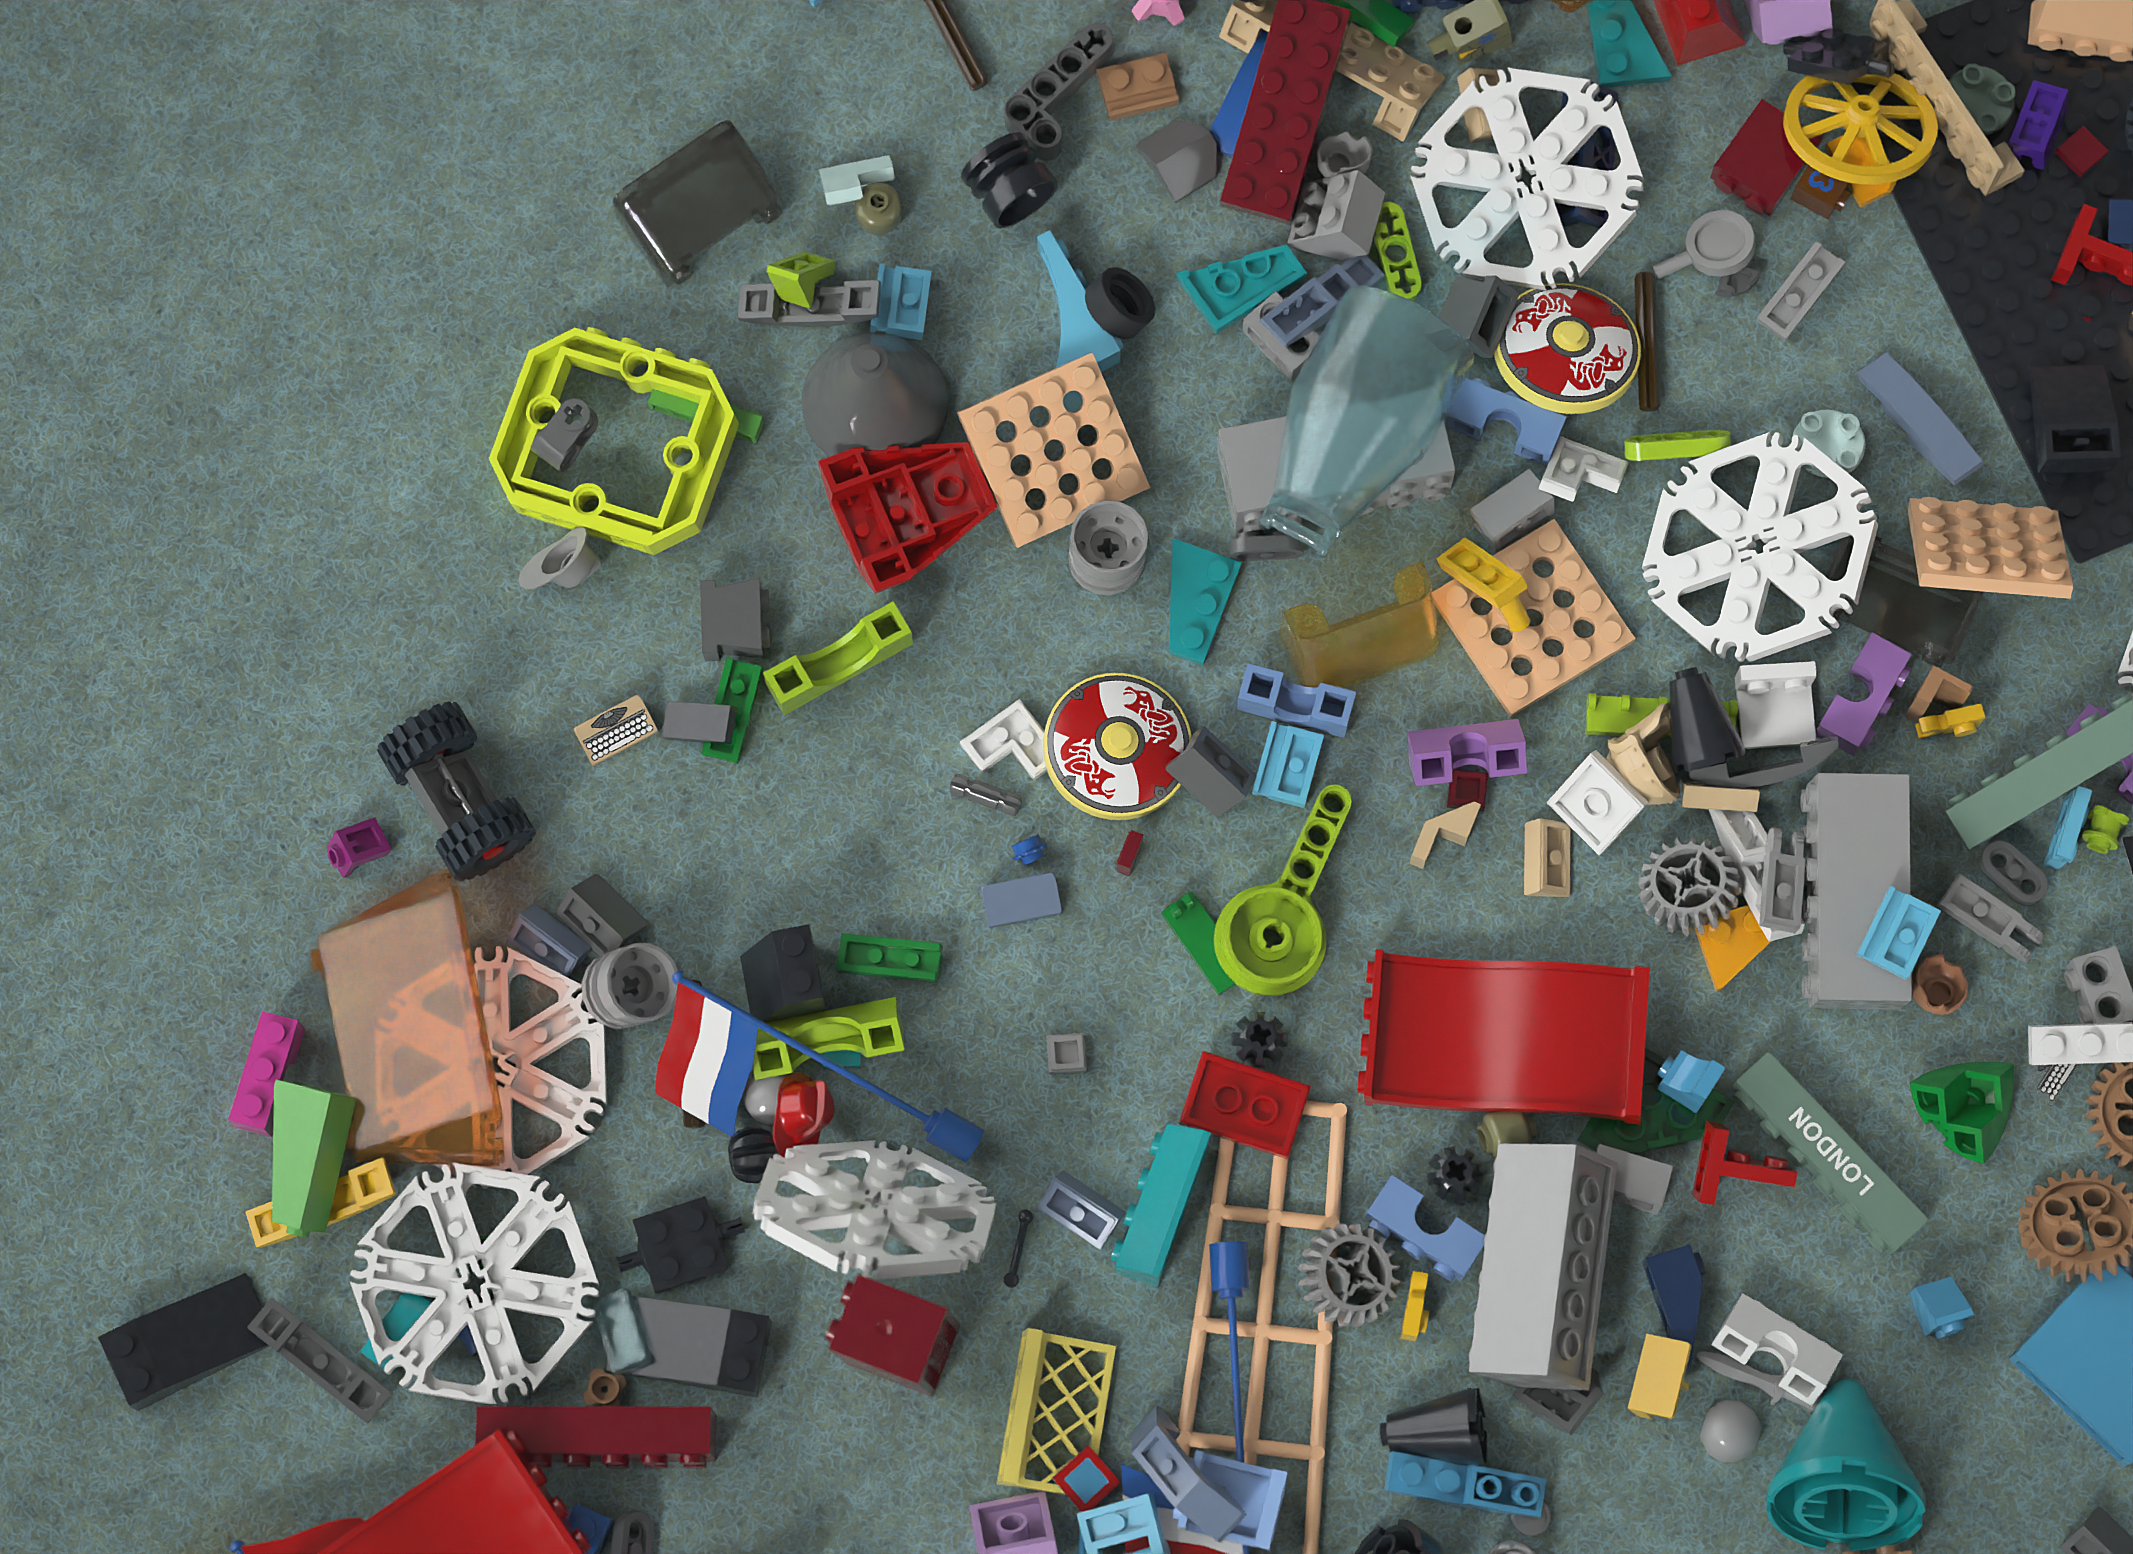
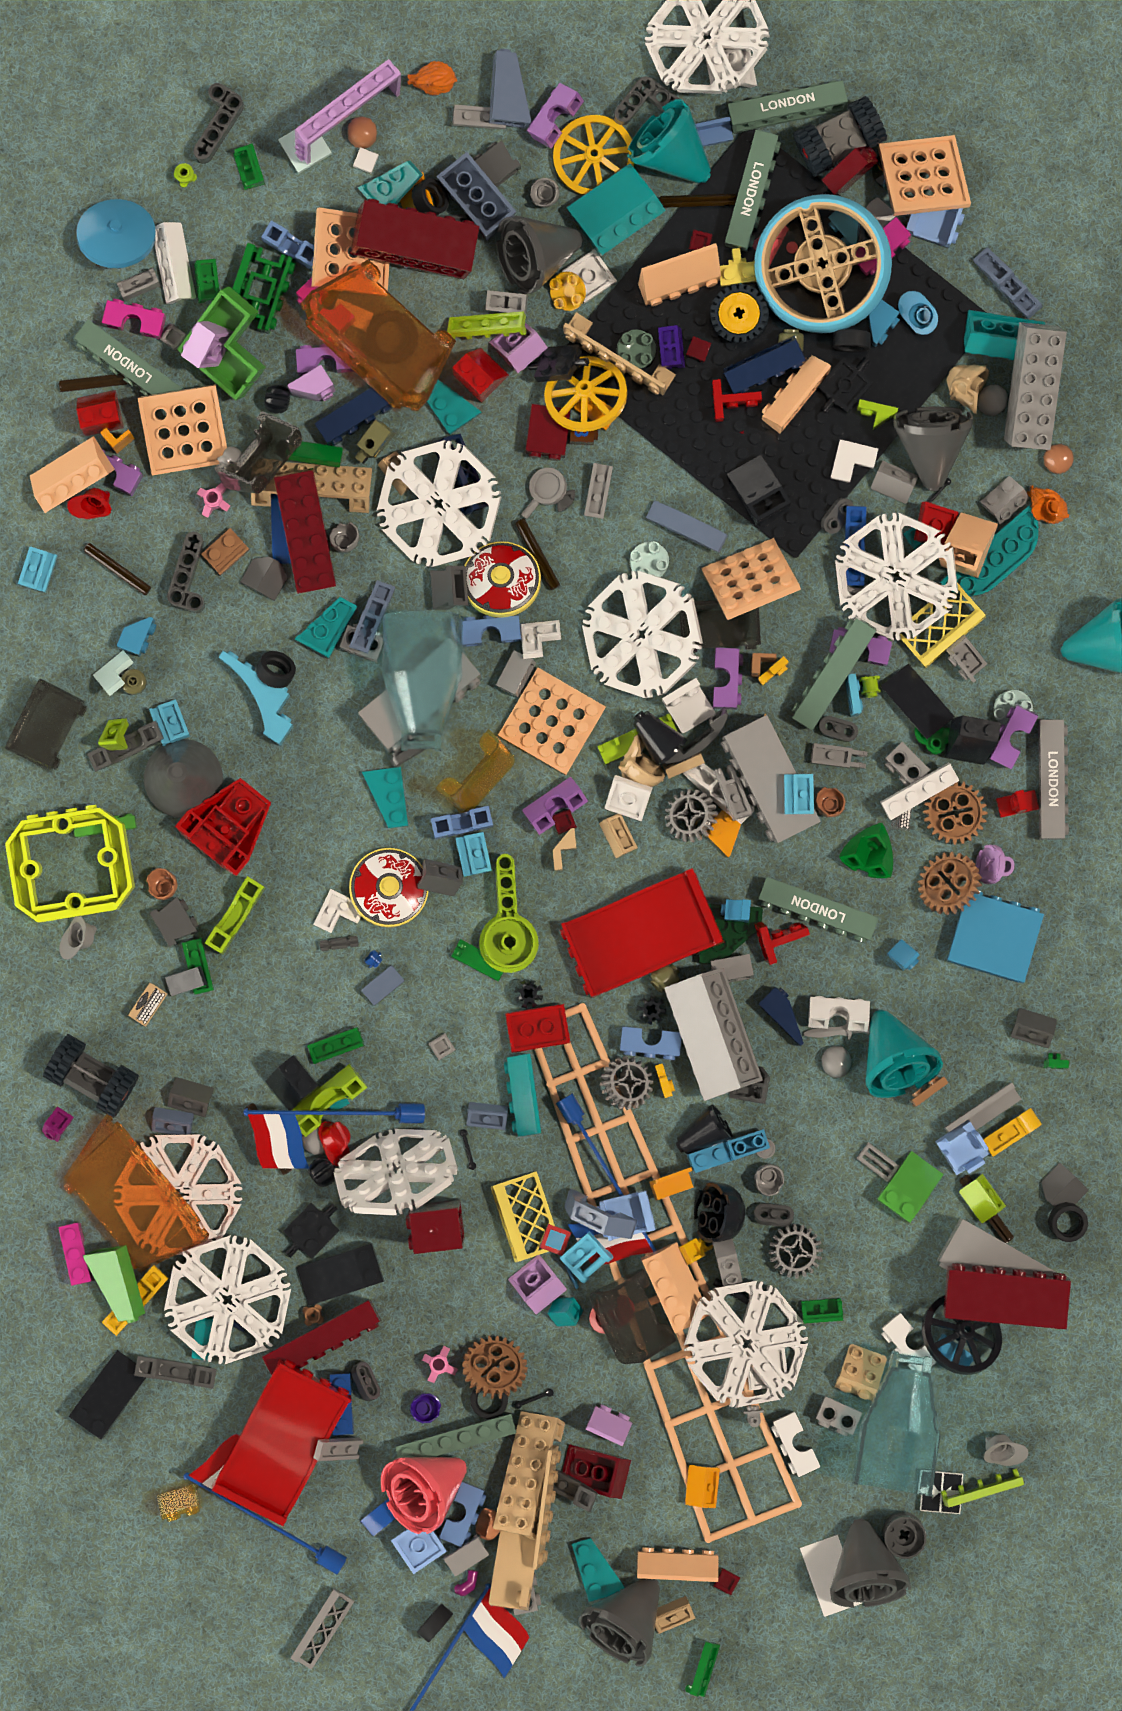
camera: 25 degrees left, 10 degrees up
(563, 437) = (47, 881): dark grey piece -> none
(621, 1331) = (306, 1284): clear light blue tile -> none
(647, 982) = (231, 1121): light grey wheel -> none
(746, 547) = (161, 883): none -> nougat hair
(922, 141) = (135, 636): none -> dark azure slope
(1009, 180) = (189, 635): black wheel -> none
(1015, 406) = (281, 746): light nougat piece -> none
(1111, 528) = (334, 783): light grey wheel -> none
(1129, 852) = (421, 933): dark red tile -> none
(1337, 216) = (357, 570): light grey slope -> none
(1337, 1489) = (671, 1184): none -> light orange panel
(1411, 275) = (381, 564): lime beam -> none
(1488, 579) = (521, 717): yellow piece -> none
(1659, 1377) = (792, 1055): yellow panel -> none
(1676, 444) = (577, 600): lime beam -> none

